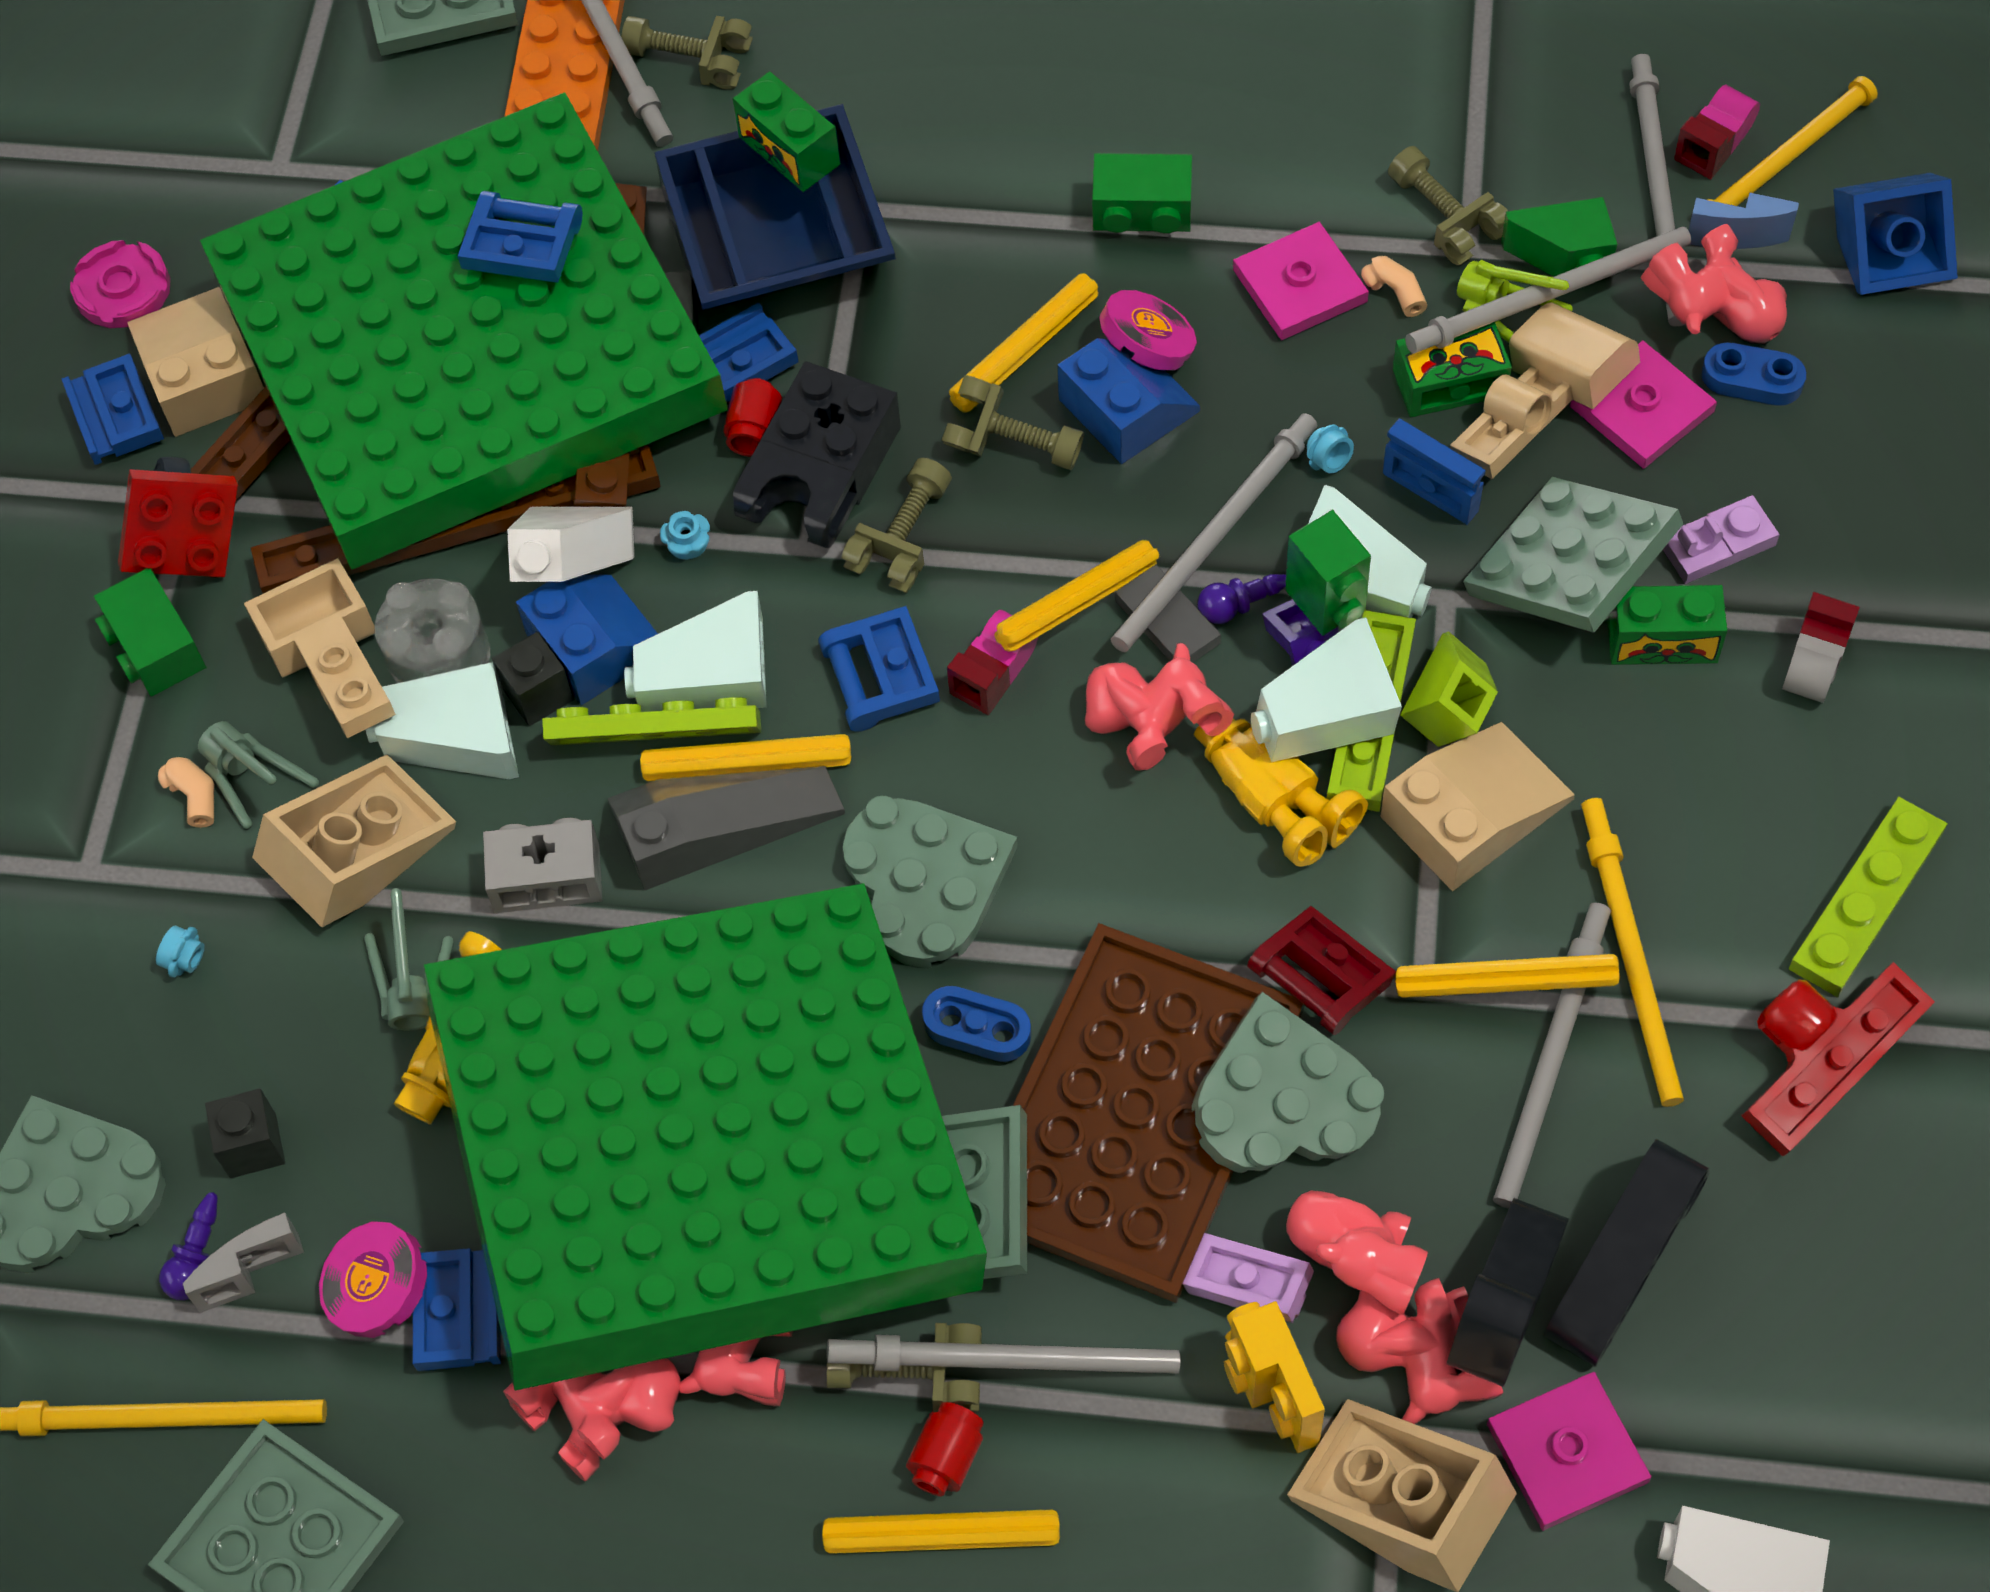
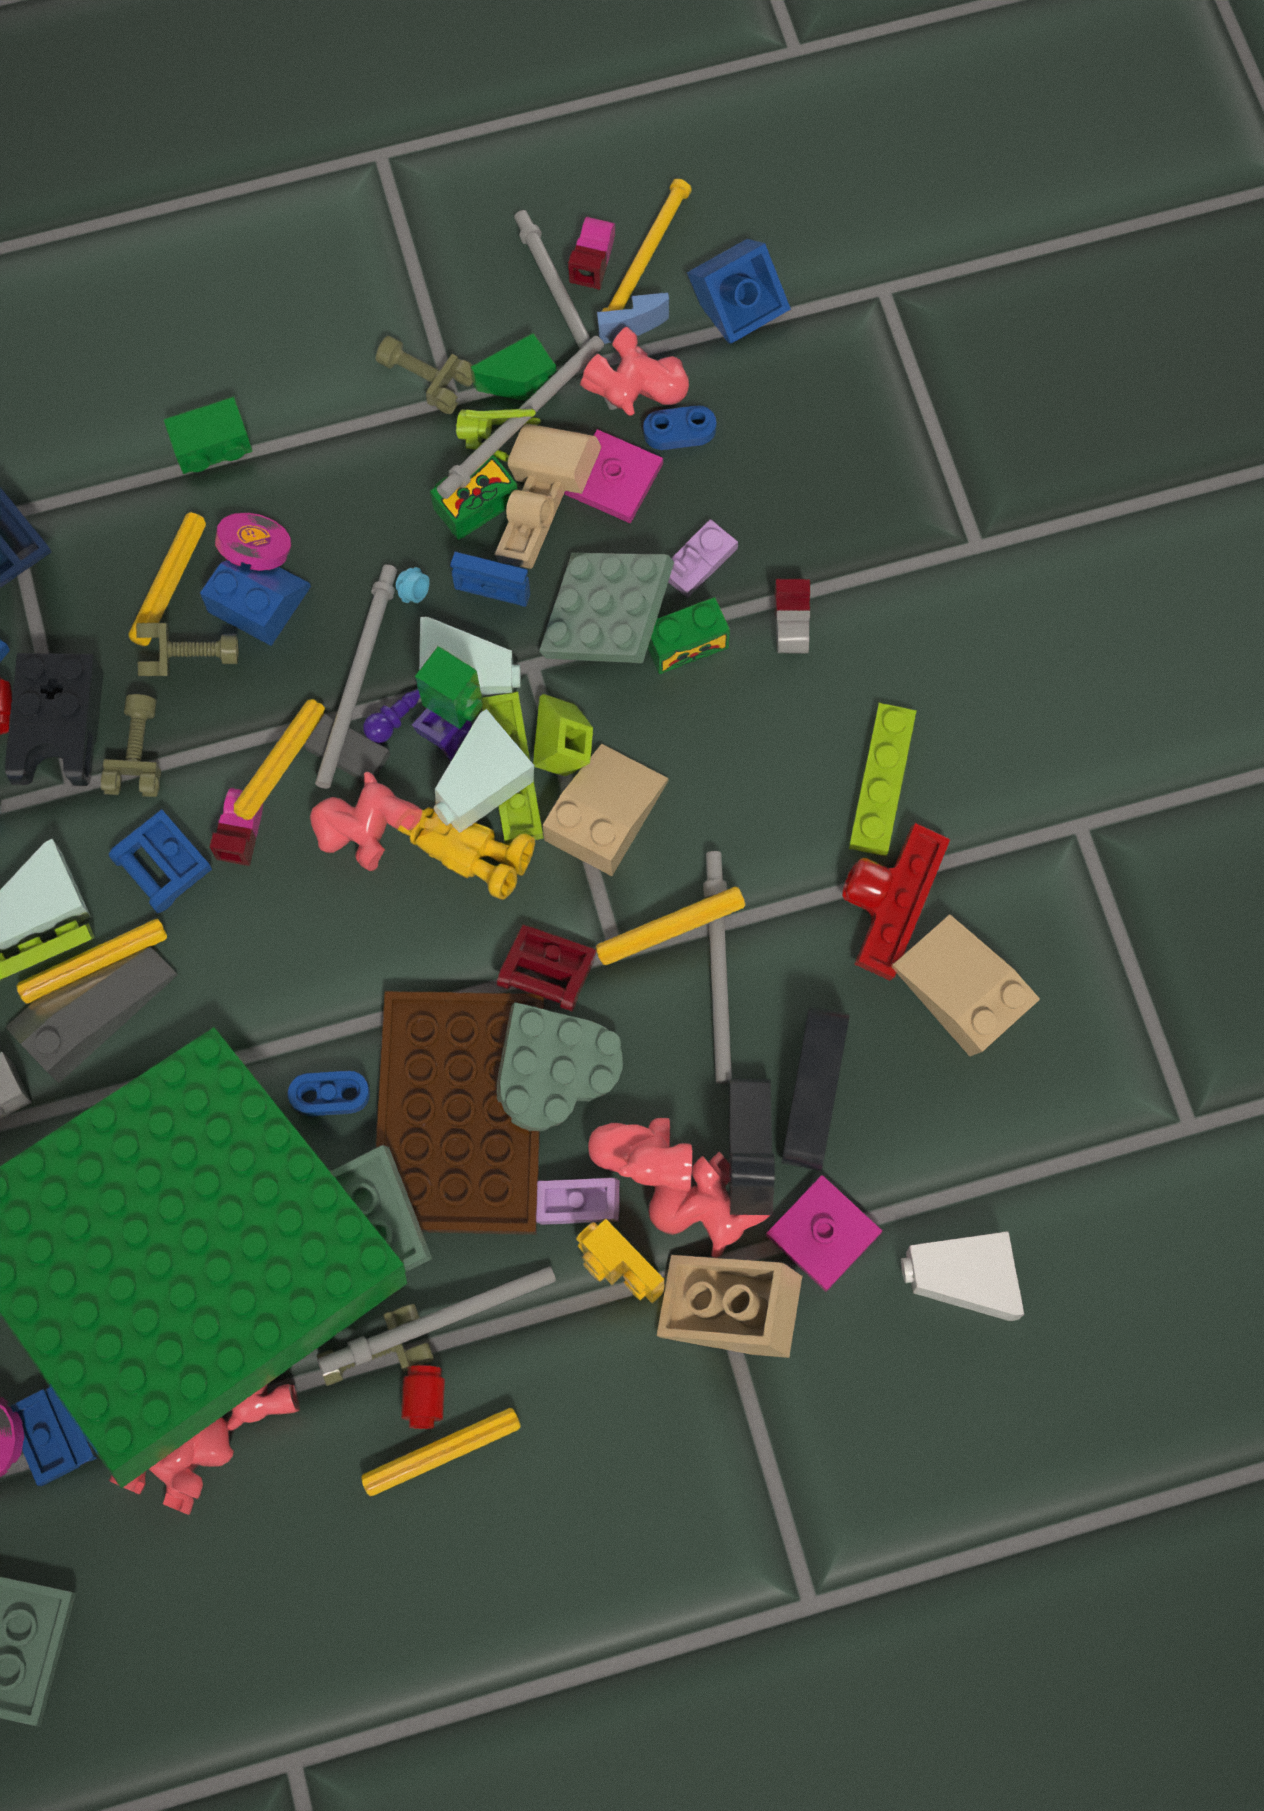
camera: 25 degrees left, 10 degrees up
(926, 875) = (253, 999): sand green plate -> none
(1300, 280) = (345, 464): dark pink plate -> none
(1400, 279) = (414, 439): light nougat arm -> none
(1605, 855) = (703, 814): yellow bar -> none
(1887, 1196) = (965, 985): none -> tan slope

